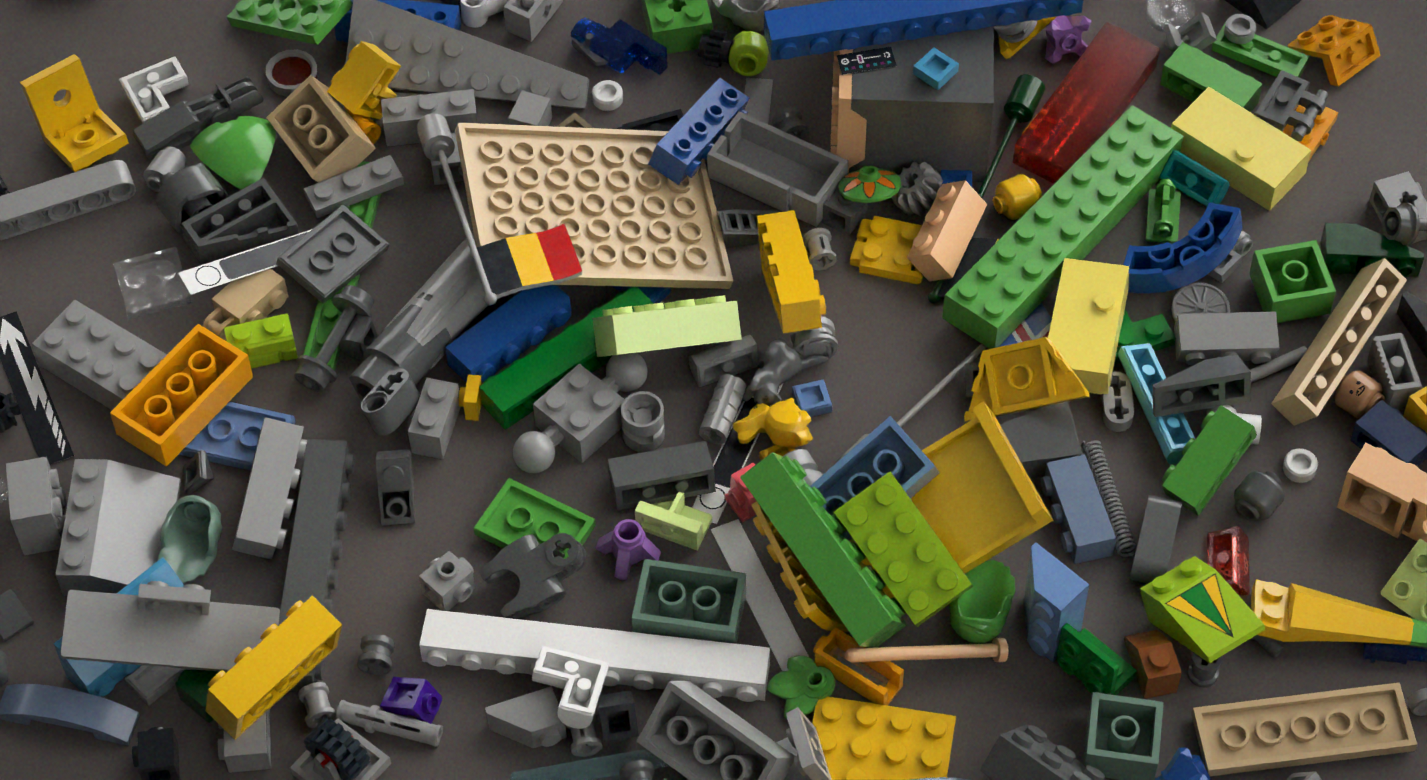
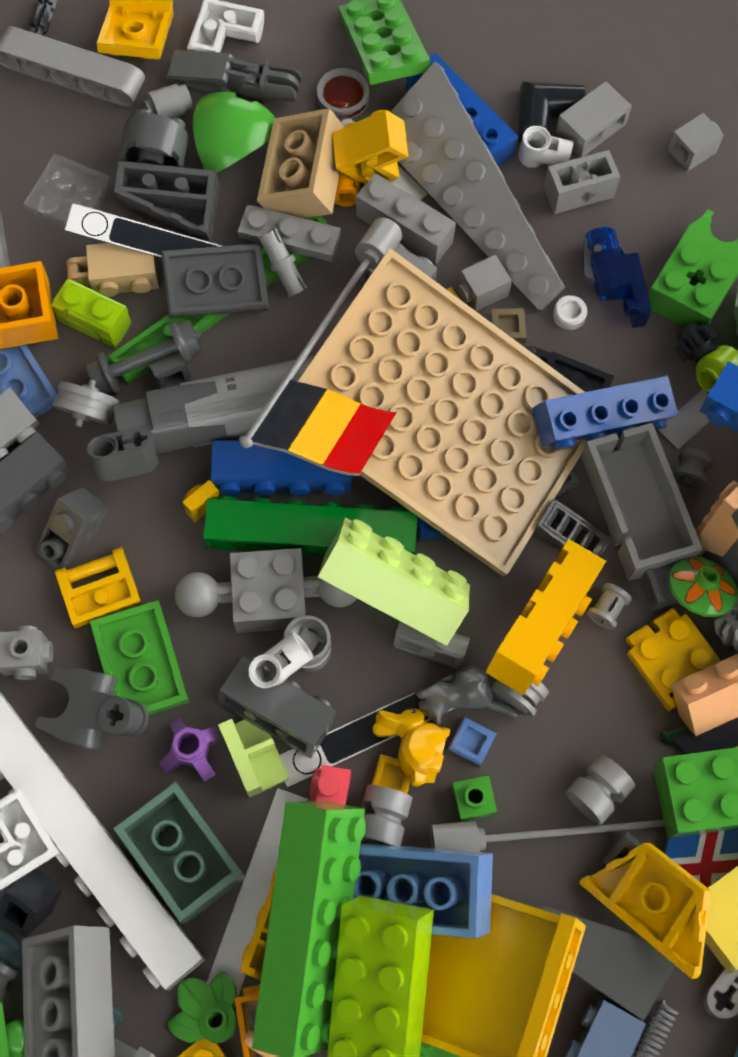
camera: 40 degrees right, 15 degrees up
(323, 396) = (85, 403): none -> light grey wheel
(370, 206) = (282, 262): none -> light grey pin
(434, 418) = (153, 494): light grey brick -> none
(463, 510) = (101, 596): none -> yellow plate
(643, 414) = (295, 651): none -> white piece
(722, 409) = (386, 687): light grey axle -> none
(848, 425) = (465, 808): none -> bright green plate
(923, 355) = (602, 787): none -> light grey wheel

